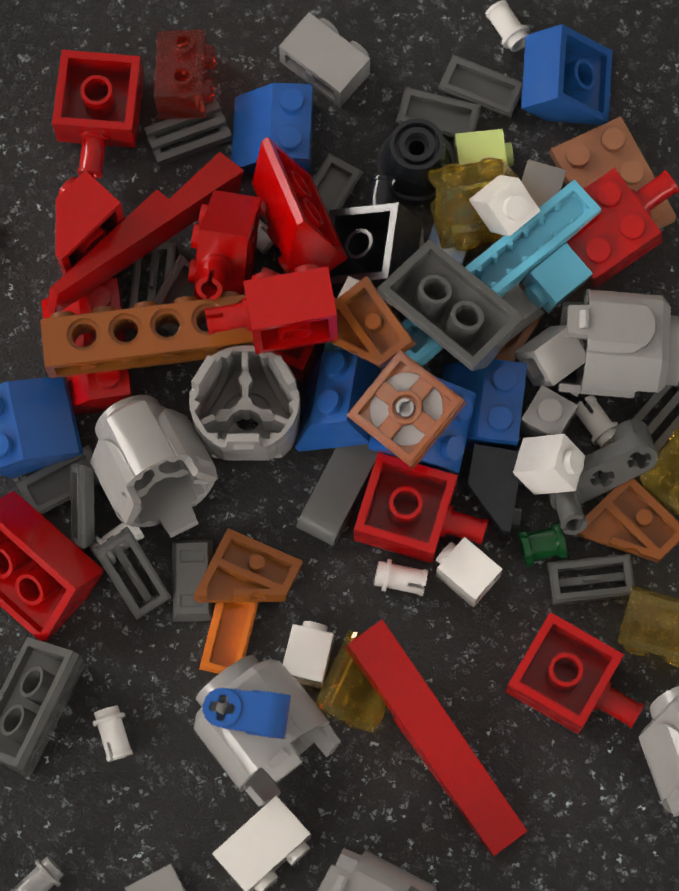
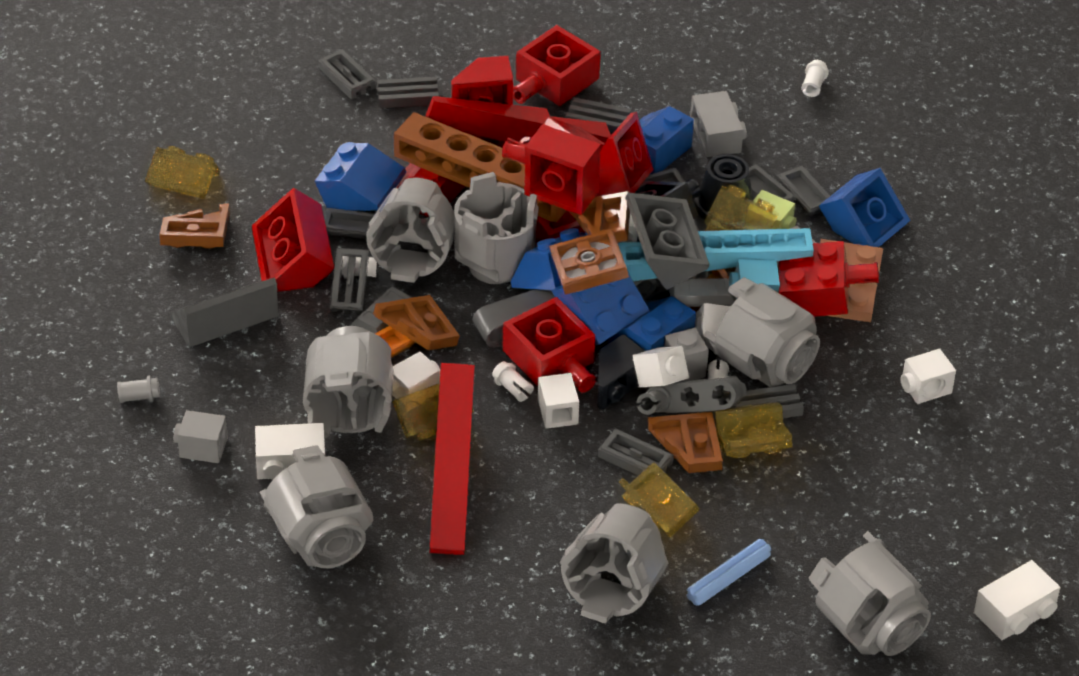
camera: 35 degrees right, 30 degrees down
(82, 505) = (354, 229): dark grey tile -> none
(112, 733) = (262, 343): white pin -> none
(182, 74) = (620, 81): clear red brick -> none
(255, 711) = (343, 333): blue piece -> none
(504, 205) = (752, 213): white brick -> none
(508, 26) = (851, 167): white pin -> none
(542, 544) = (619, 415): dark green bush -> none
(569, 677) = (567, 478): red brick -> none

